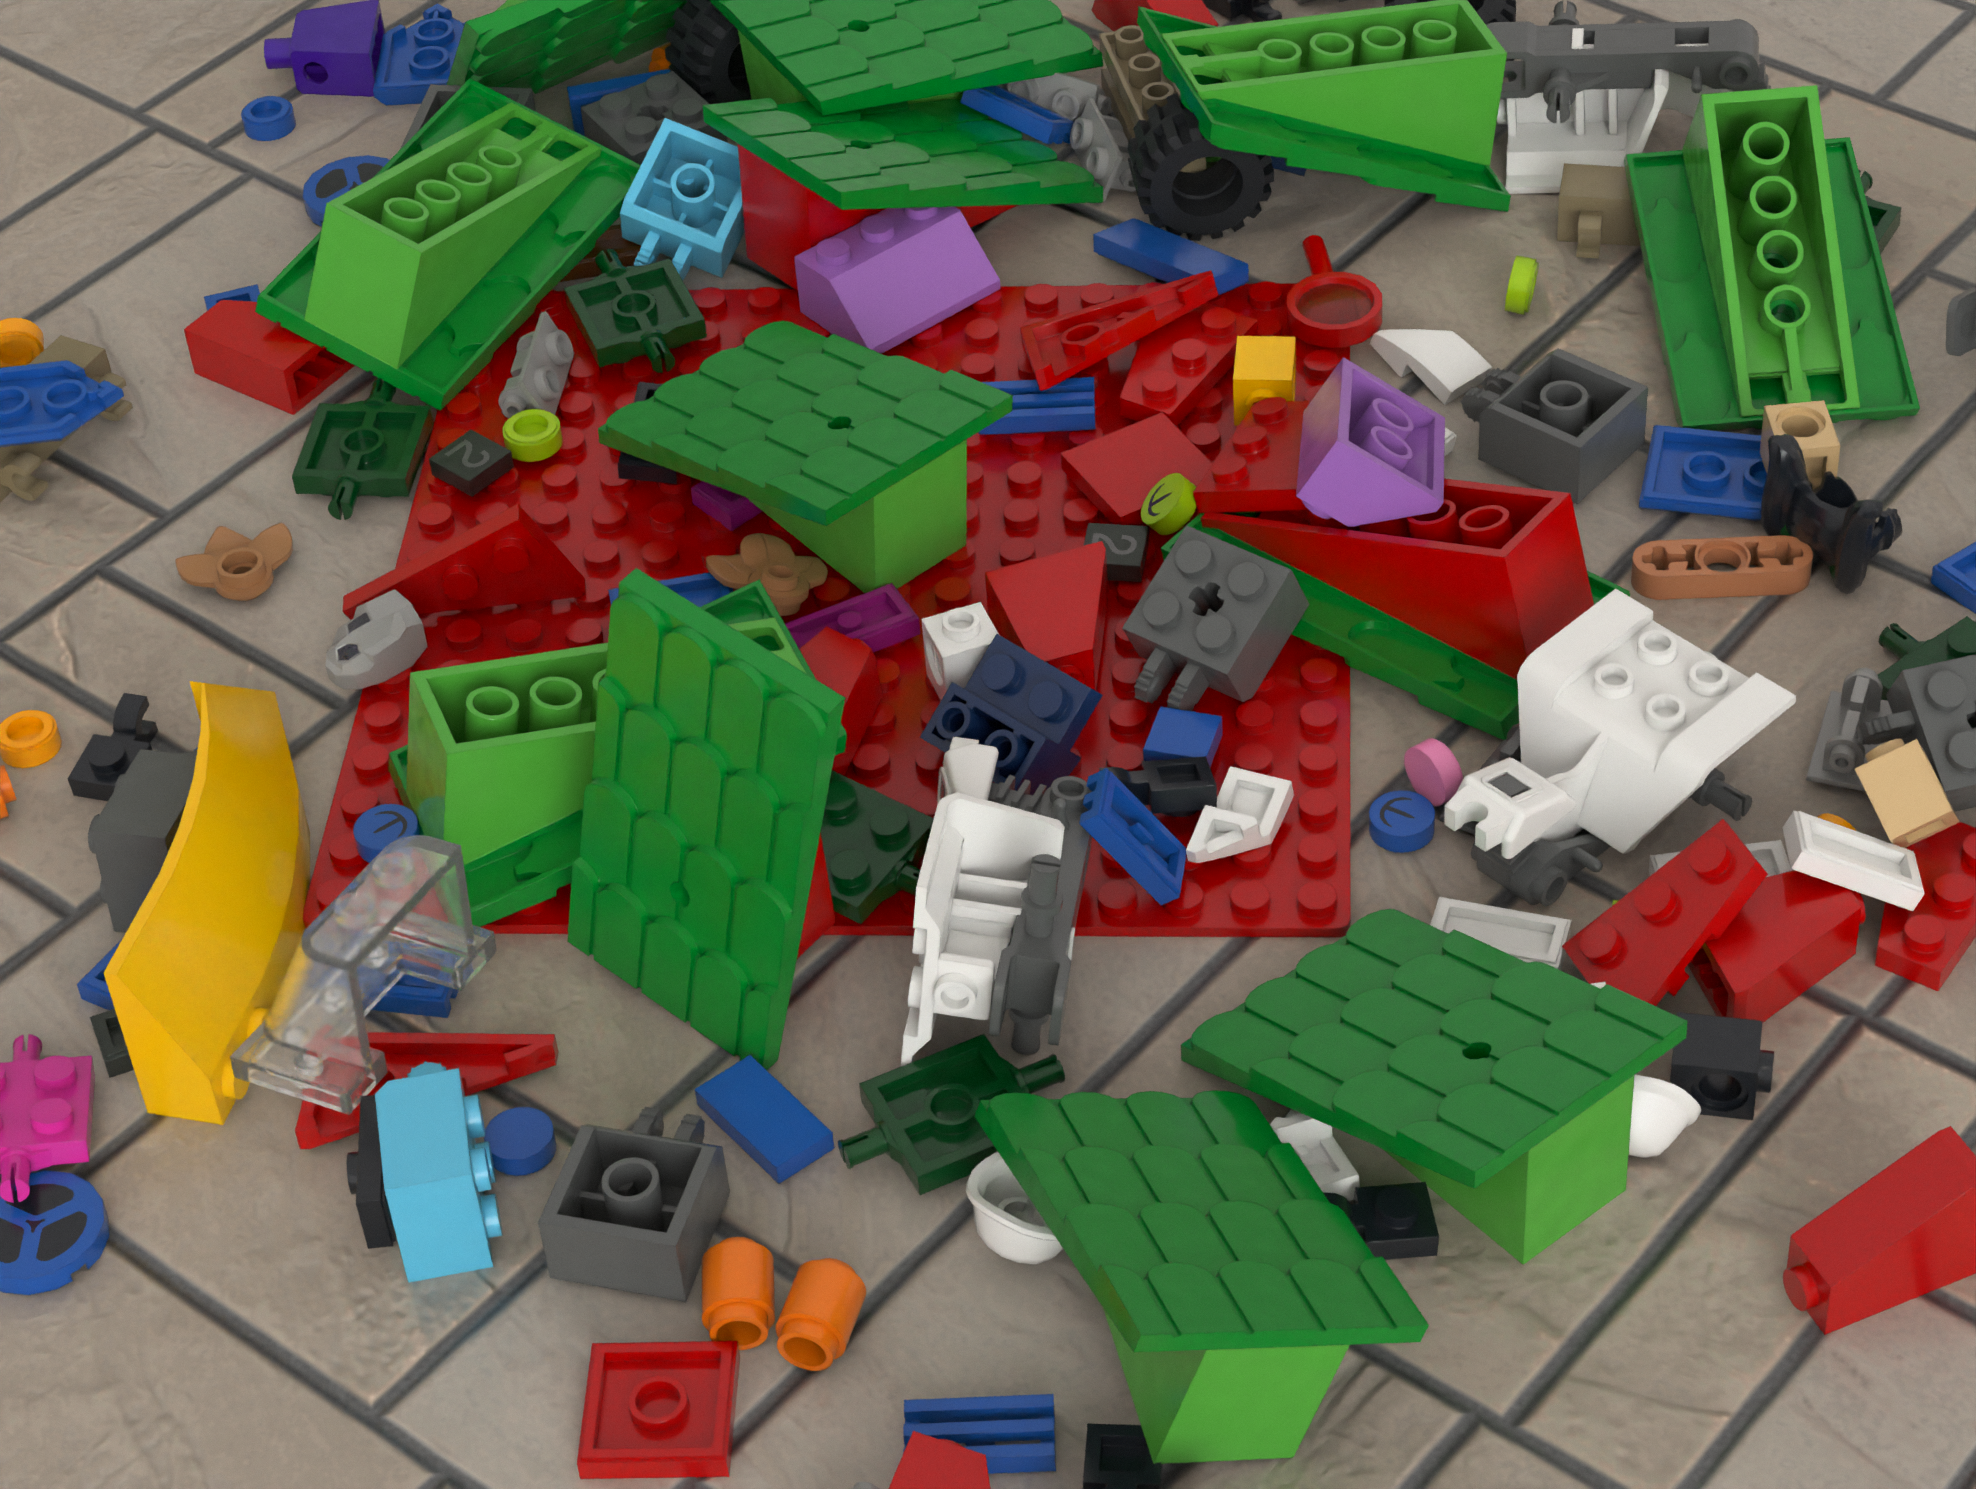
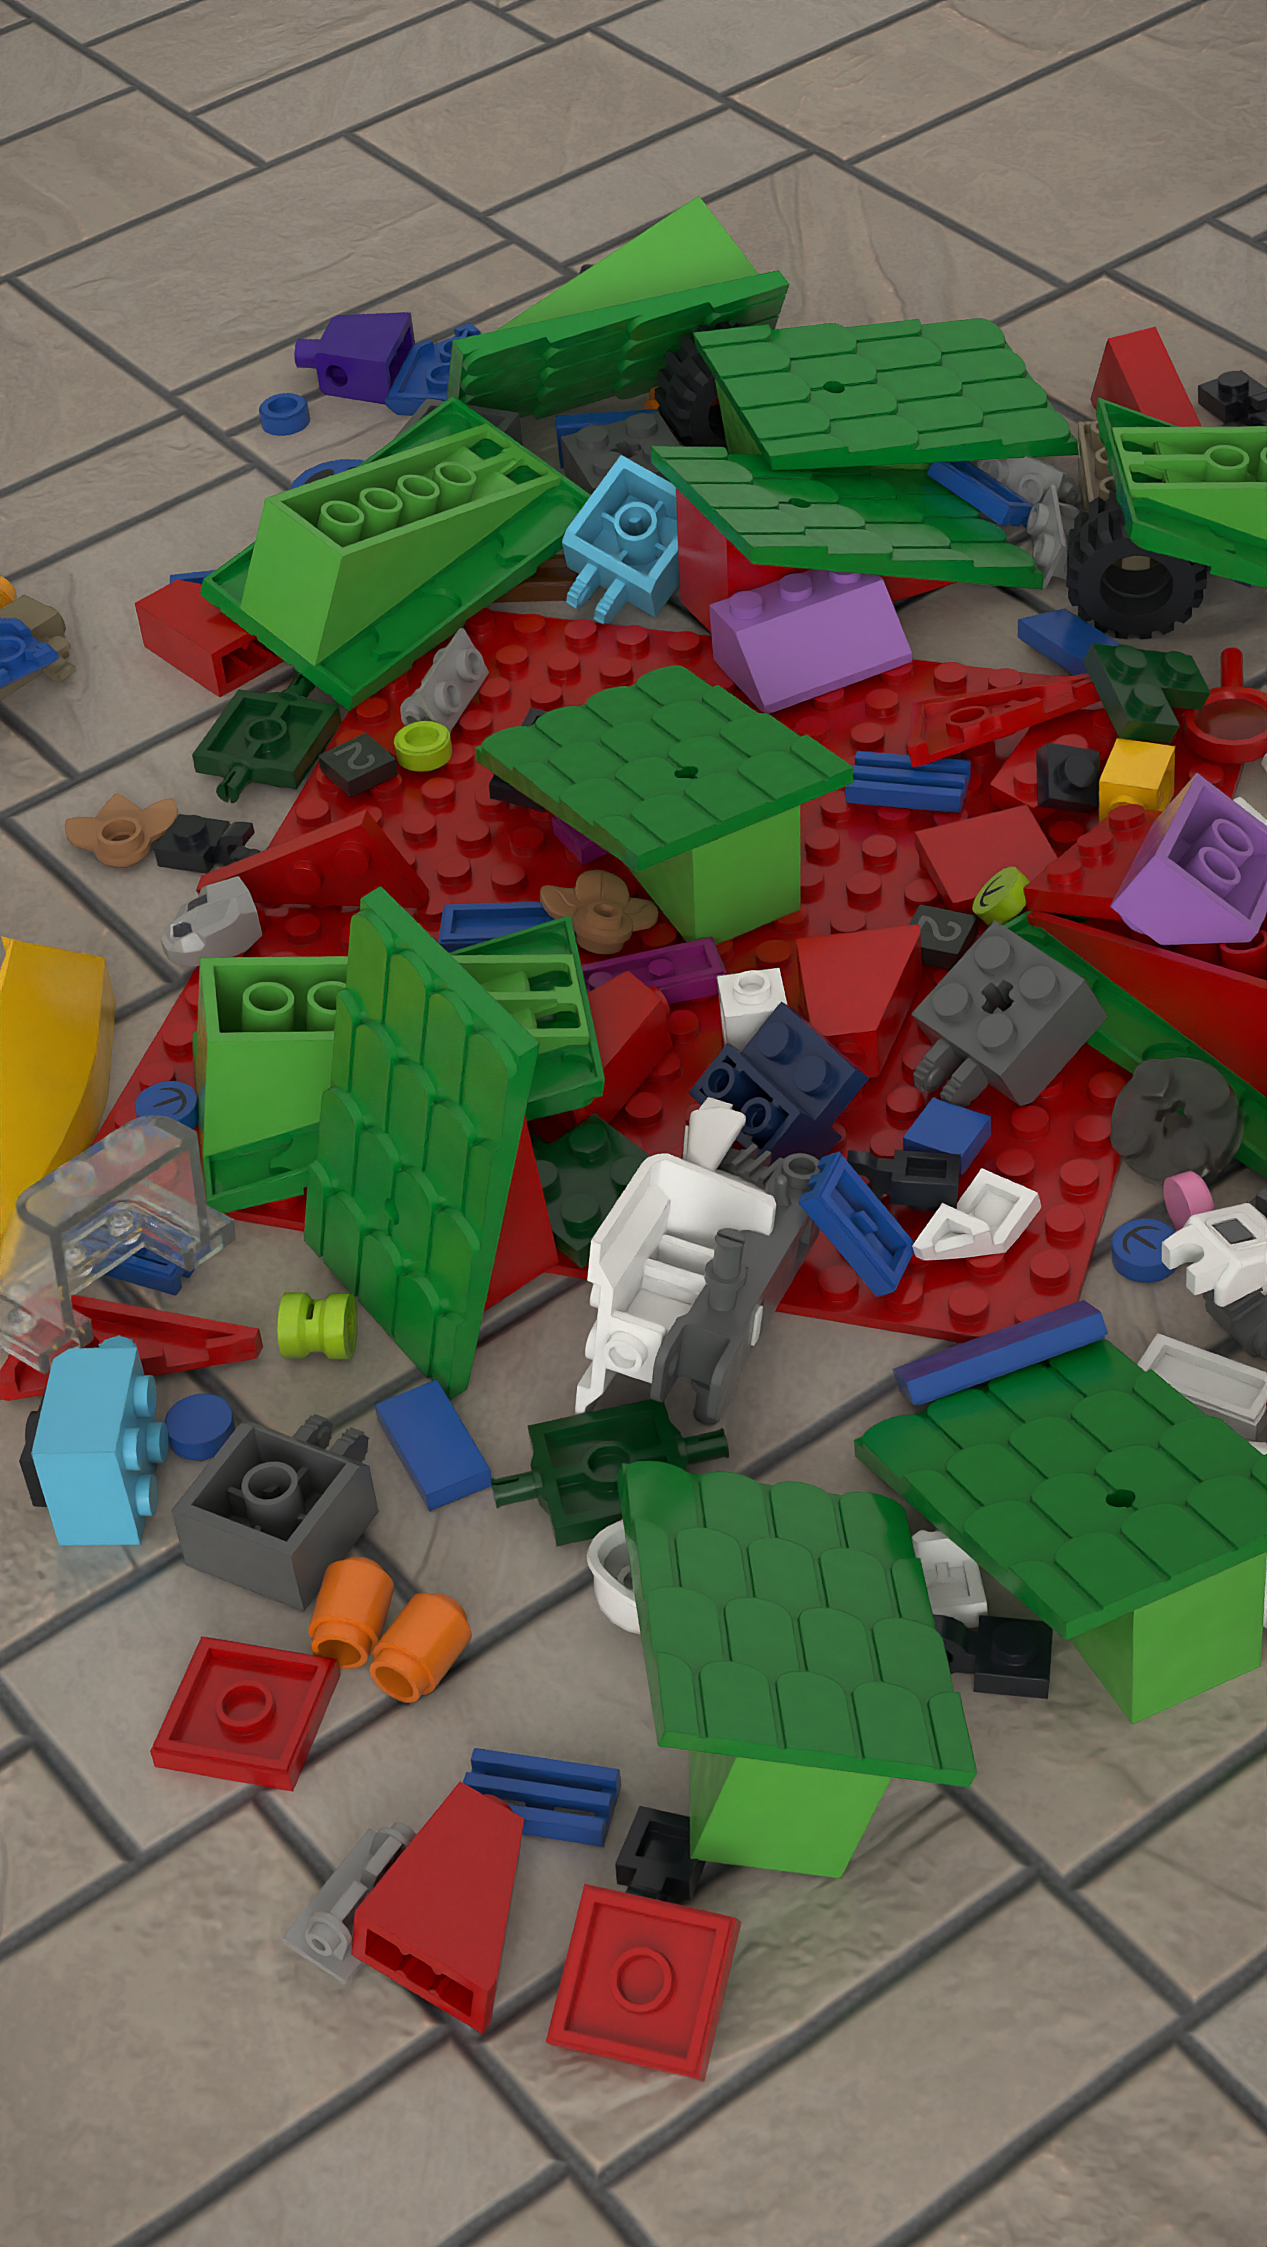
camera: 15 degrees right, 0 degrees up
(329, 563) = (201, 842): none -> black plate
(612, 1022) = (317, 1325): none -> lime wheel
(635, 312) = (553, 640): dark green plate -> none
(1197, 381) = (1068, 778): none -> black plate
(1250, 285) = (1142, 688): none -> dark green plate
(1298, 938) = (1000, 1352): none -> blue tile
(1378, 666) = (1160, 1090): none -> clear smoke plate

